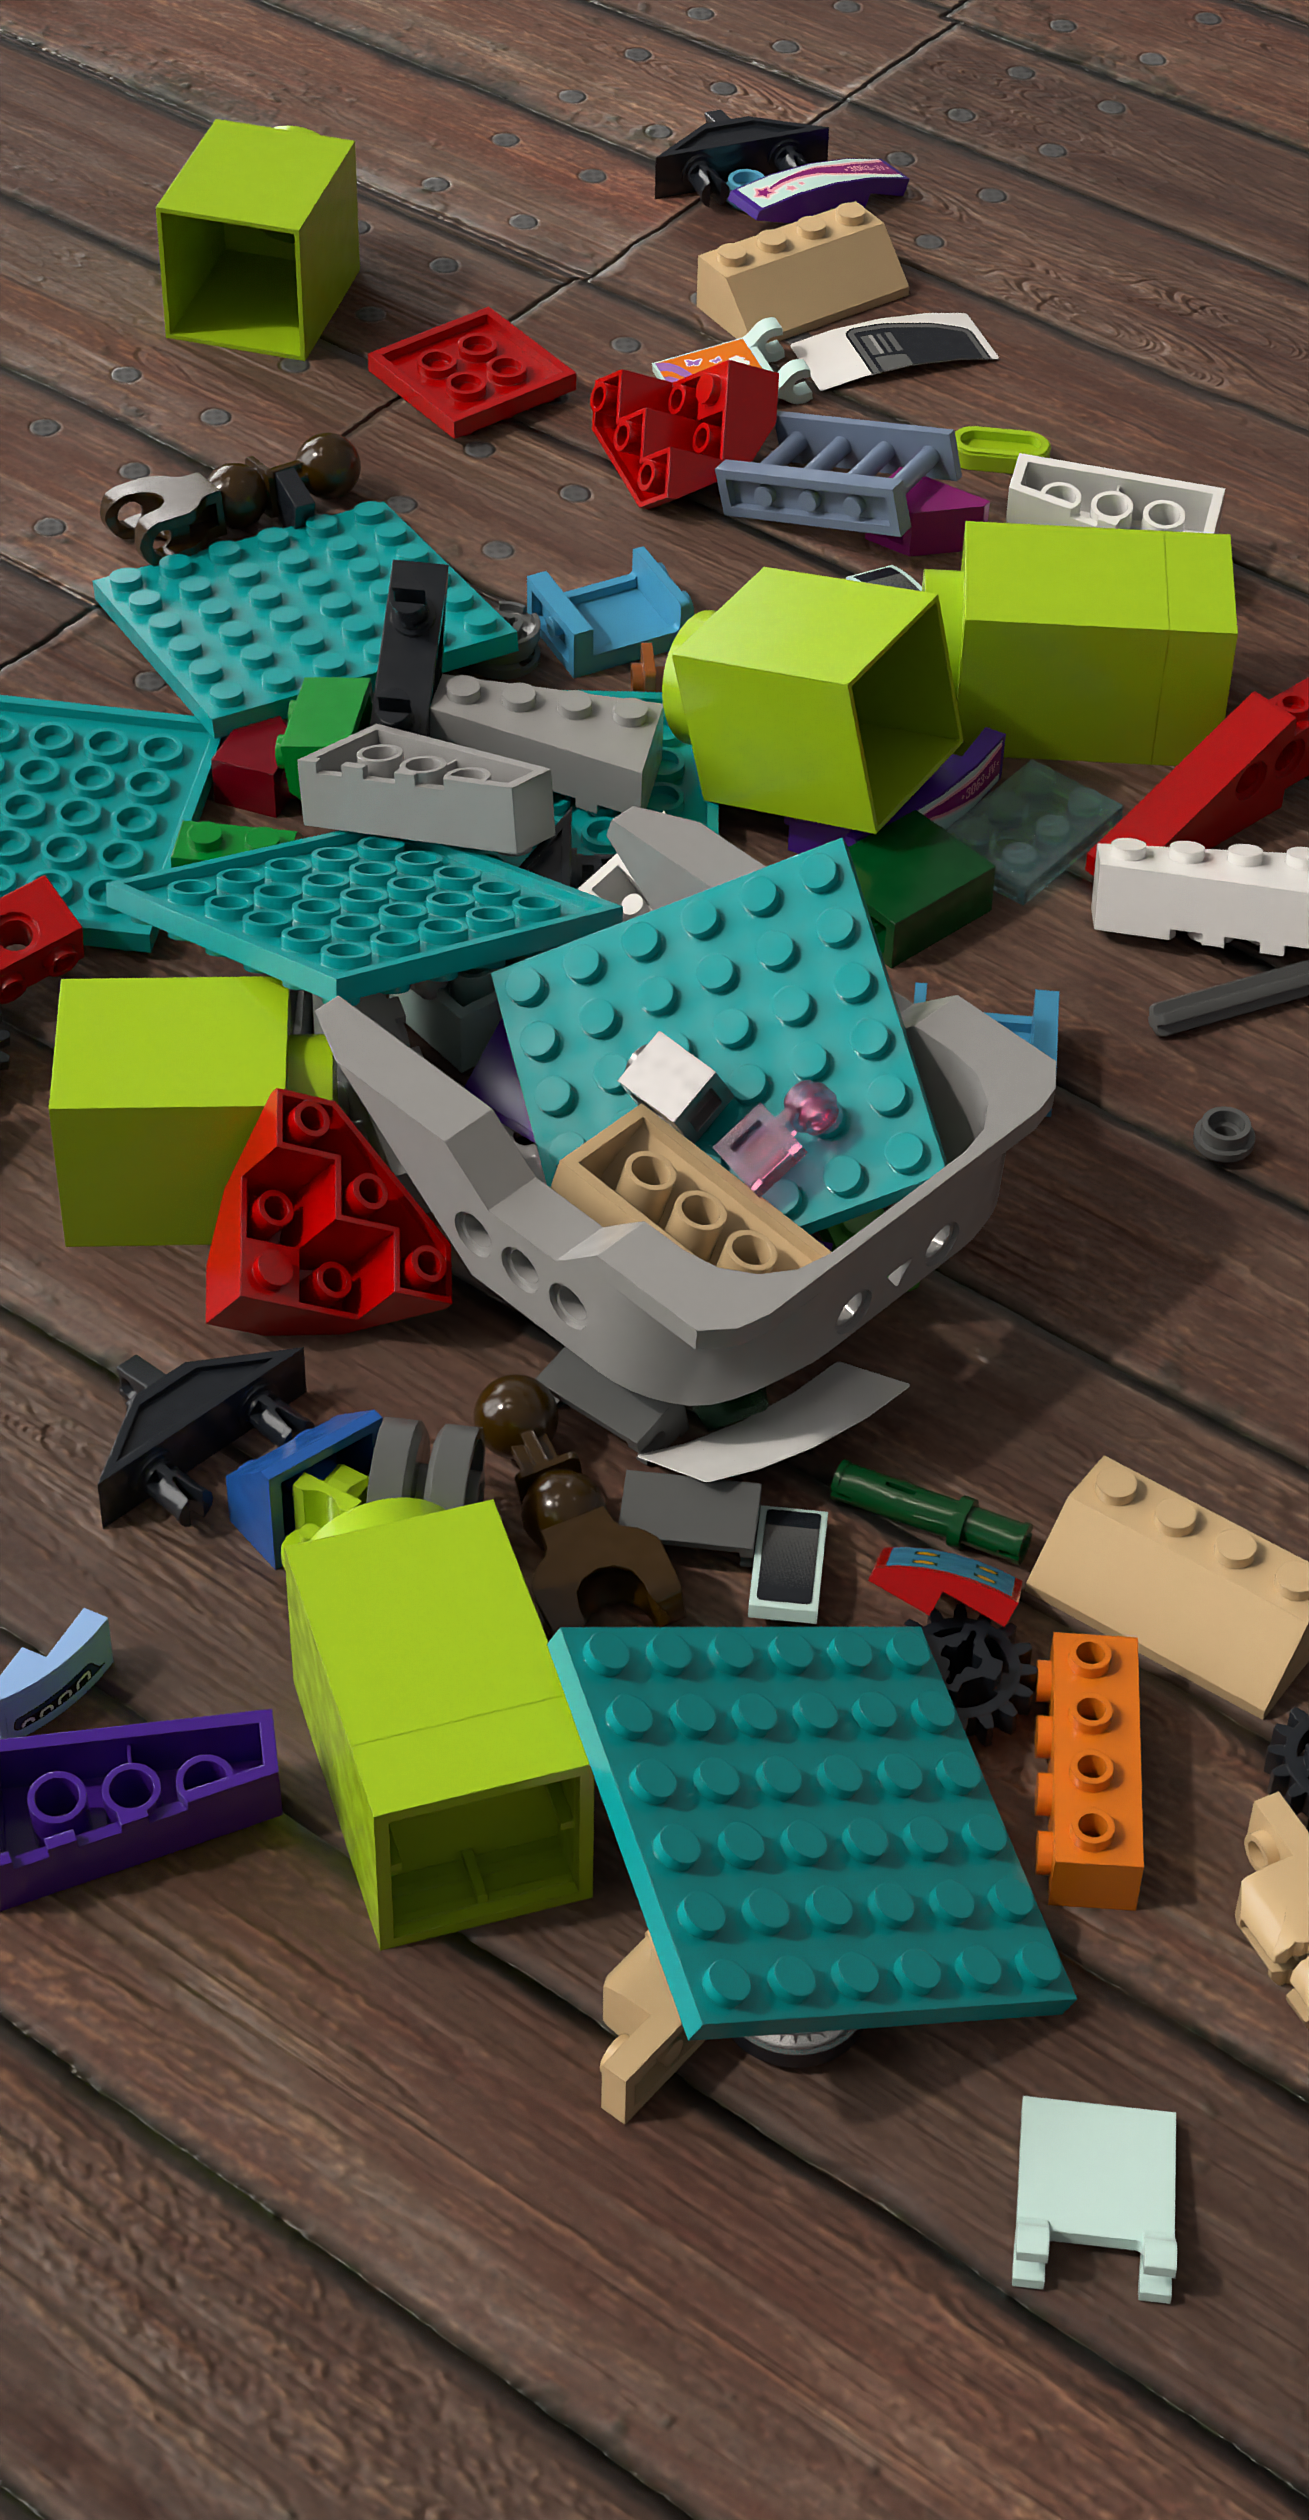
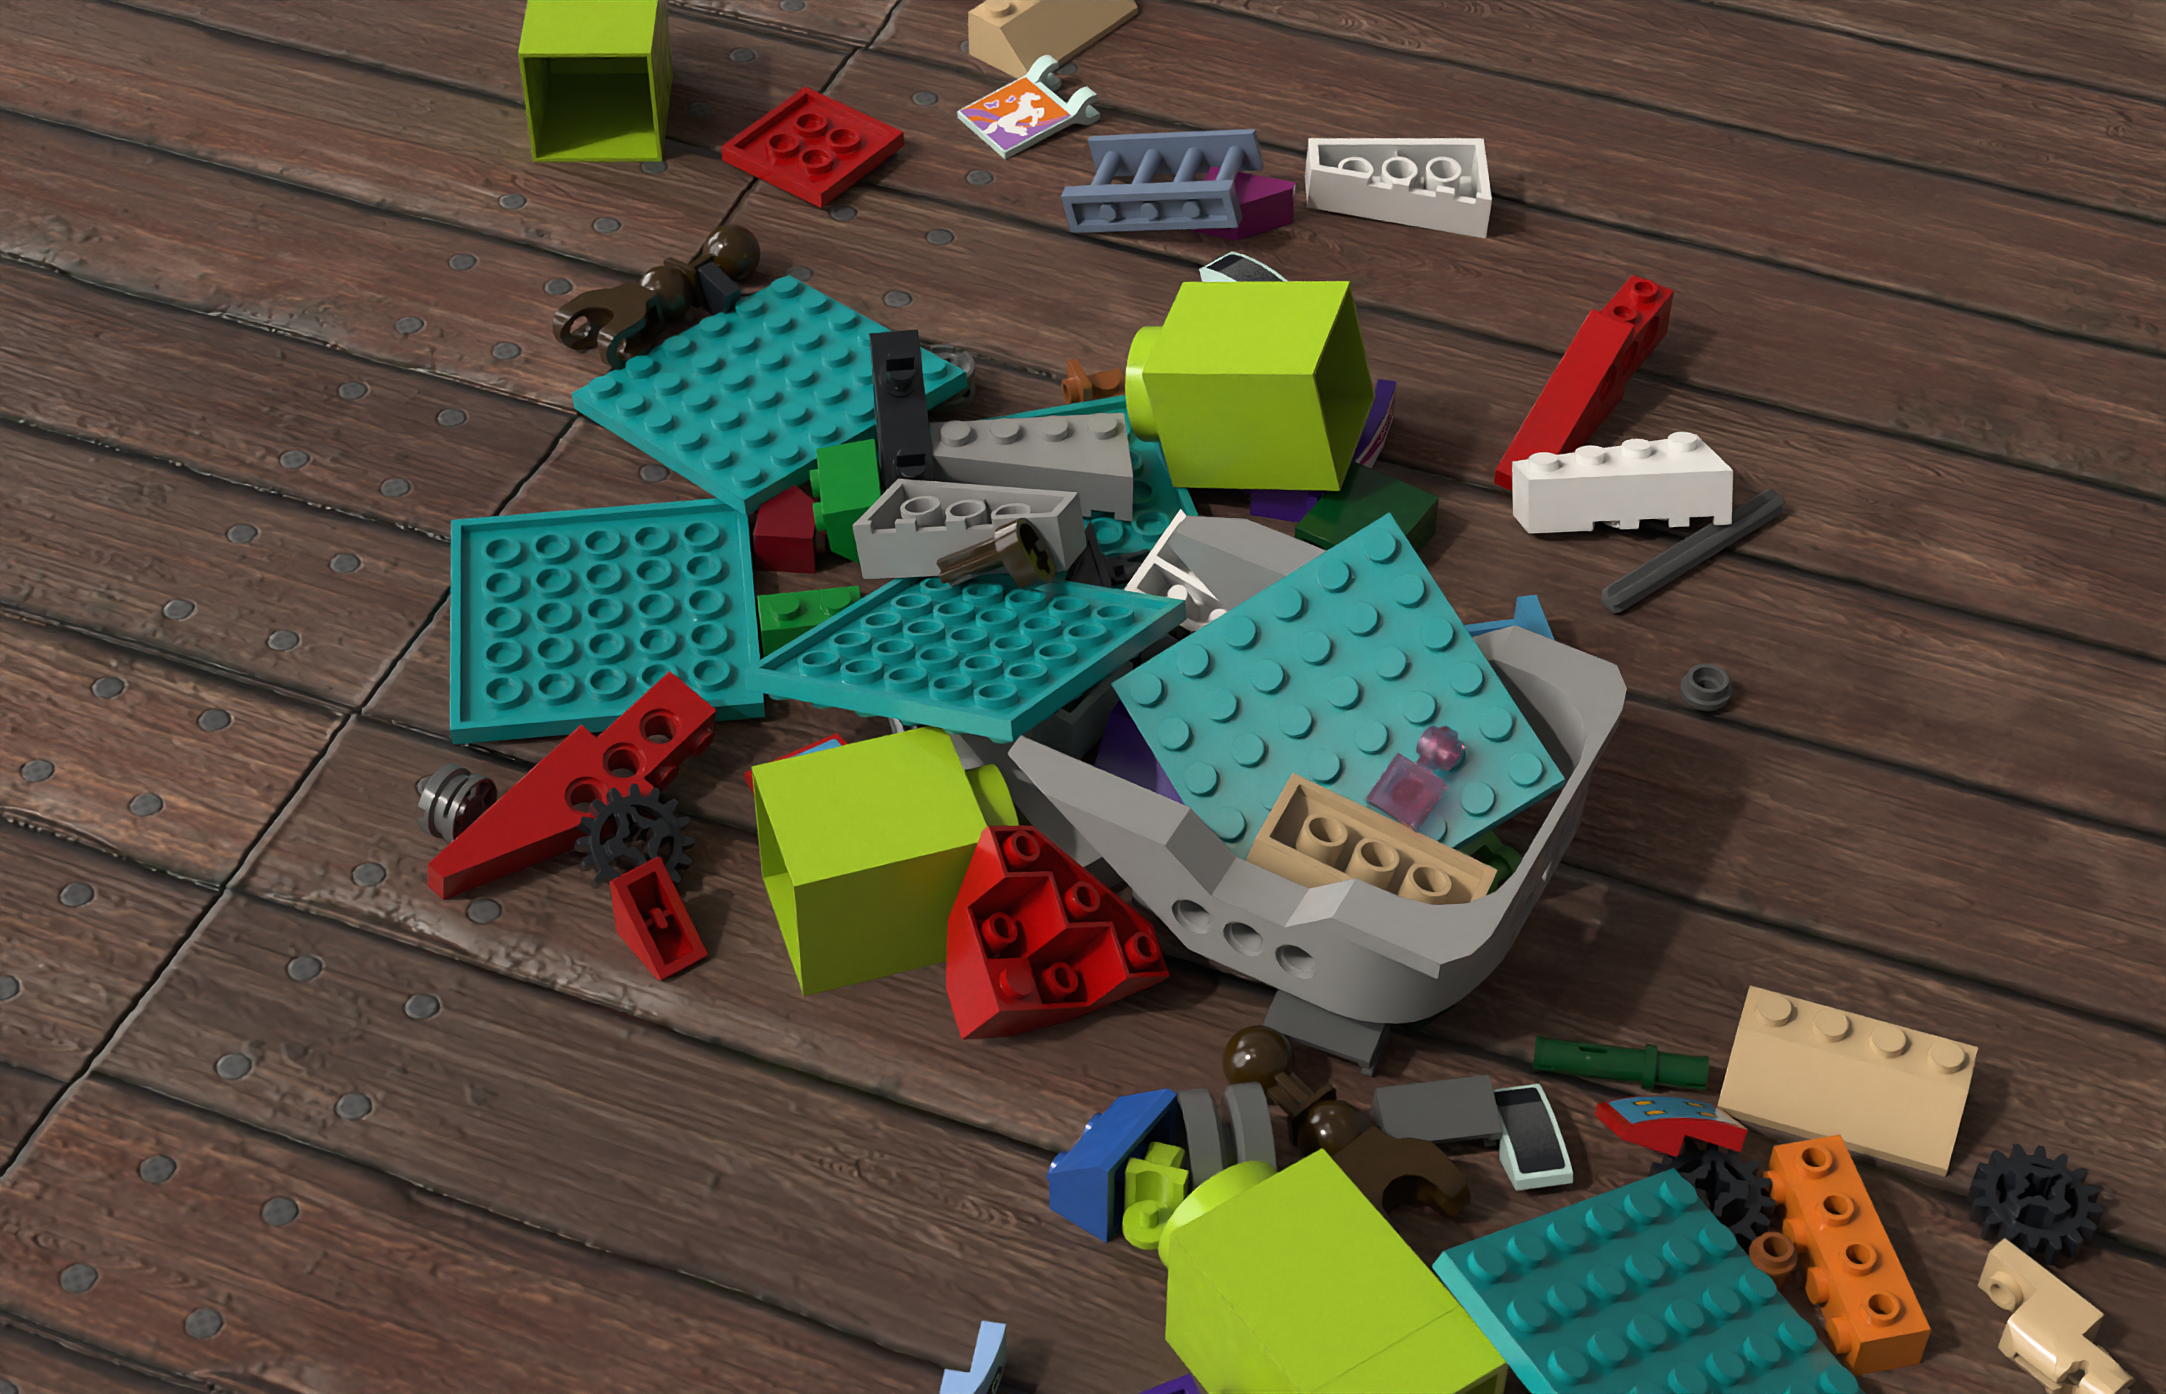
camera: 15 degrees left, 0 degrees up
(190, 1416) = (986, 1123): black connector -> none
(457, 814) = (1015, 546): none -> dark brown piece
(609, 619) = (1024, 340): dark azure panel -> none
(675, 1086) = (1316, 751): brick -> none
(676, 433) = (1015, 169): red brick -> none
(791, 1426) = (1476, 1024): white sticker -> none
(890, 345) = (1143, 61): sticker -> none
(997, 448) = (1279, 133): lime tile -> none
(998, 1751) = (1774, 1256): none -> dark orange pin
(1035, 828) = (1443, 454): clear light blue plate -> none
(1090, 639) = (1449, 285): lime container -> none

